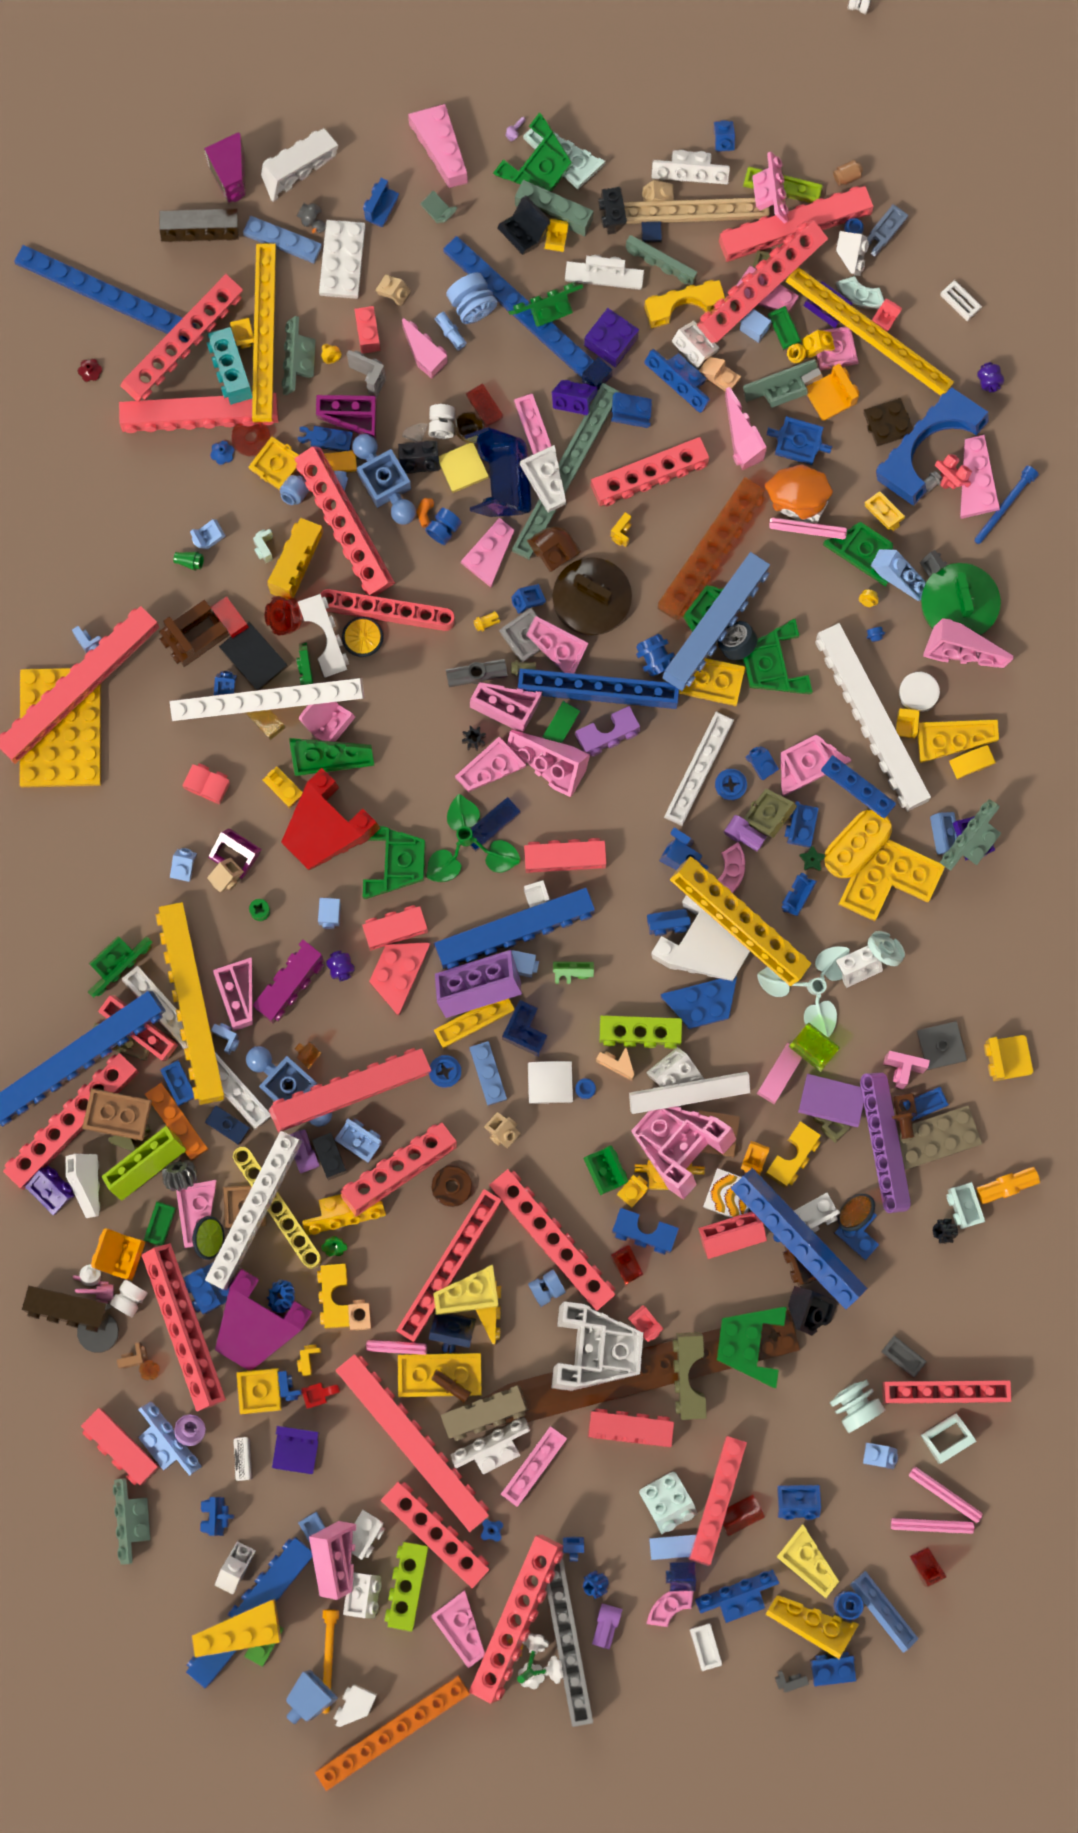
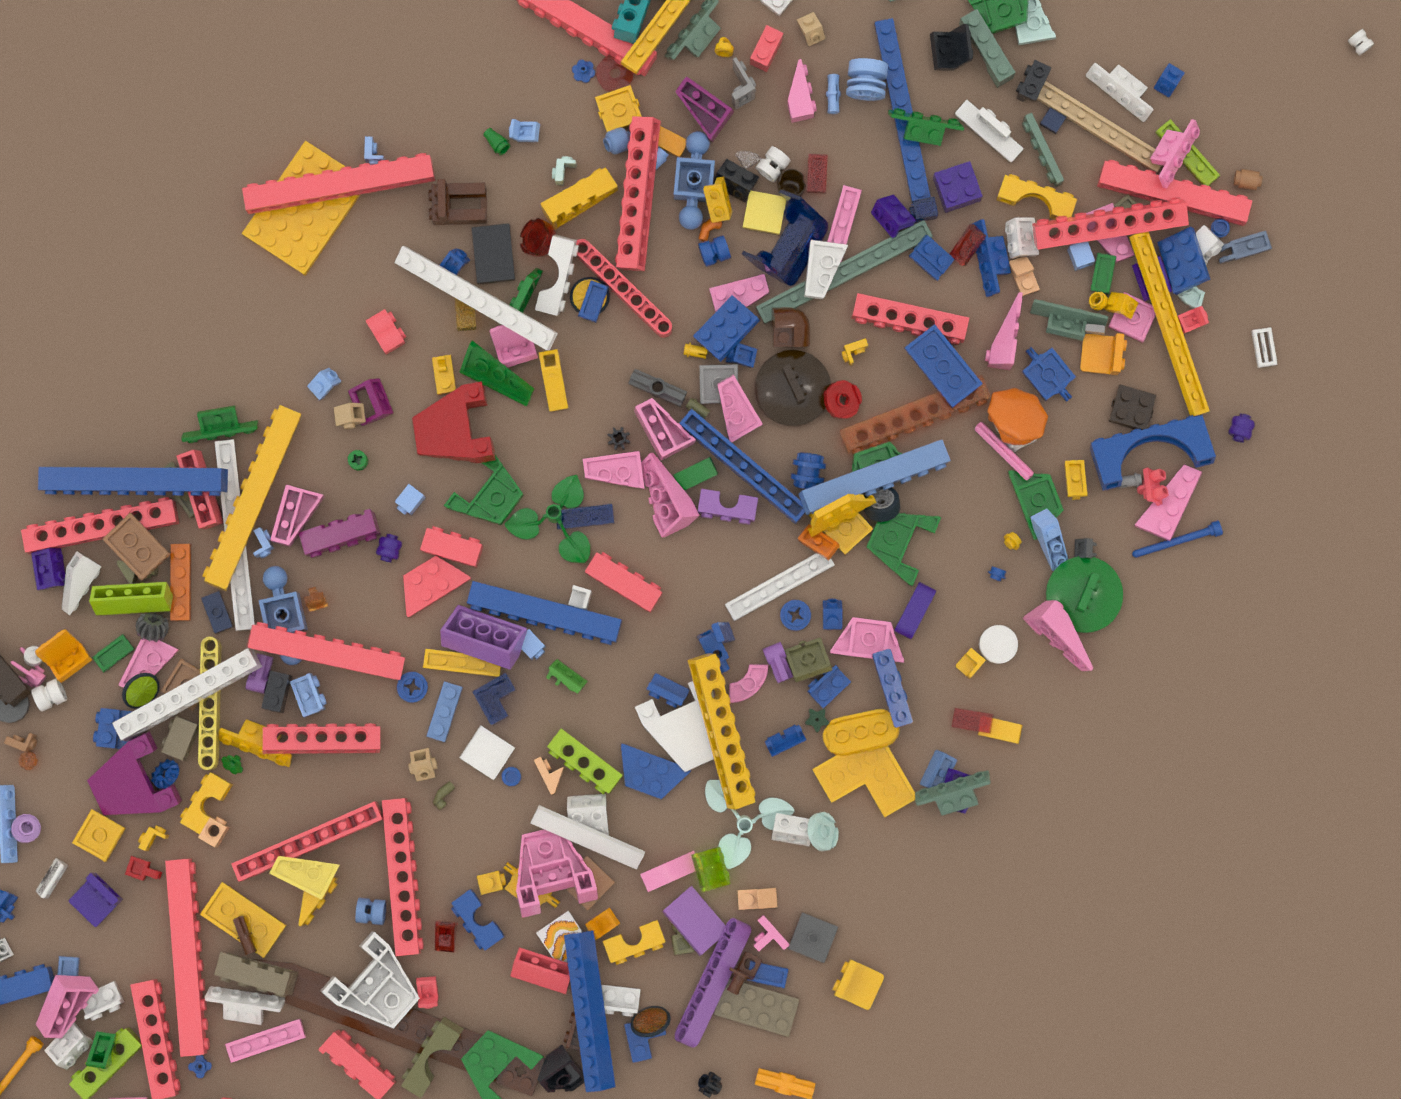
camera: 40 degrees right, 5 degrees up
(178, 1083) = (201, 552): blue plate -> none
(183, 1327) = (74, 746): coral brick -> none
(229, 617) = (496, 209): tile -> none
(272, 1256) = (180, 738): none -> dark tan brick
(285, 1383) = (122, 843): blue bracket -> none
(327, 438) = (674, 116): blue plate -> none
(369, 638) = (593, 301): none -> blue tile
(382, 726) = (553, 380): none -> yellow slope
(396, 1347) = (225, 875): bright pink axle -> none
(396, 1573) = (101, 1050): none -> green slope
(417, 481) = (718, 200): none -> yellow bracket
(452, 1330) = (275, 894): dark blue tile -> none
(455, 1198) = (355, 768): reddish brown tile -> none
(500, 583) = (726, 328): none -> blue plate
(536, 1144) = (441, 793): none -> olive arm
(556, 235) = (972, 72): yellow bracket -> none
(606, 1170) = (481, 851): green bracket -> none
(634, 583) = (832, 397): none -> red plate
(655, 378) = (967, 244): none -> clear red plate
(658, 191) = (1081, 91): tan bracket -> none
(706, 669) = (837, 511): none -> yellow wing
(707, 490) = (943, 366): none -> blue plate
(707, 709) = (819, 543): none -> orange plate
(829, 711) = (915, 610): none -> dark purple beam
(844, 272) = (1183, 260): none -> blue plate
(870, 1046) = (757, 898): none -> light nougat slope
(873, 717) = (946, 639): white brick -> none
(944, 769) = (972, 720): none -> clear red plate
(947, 738) = (994, 697): yellow wing -> none
(965, 1206) = (740, 1076): light aqua bracket -> none

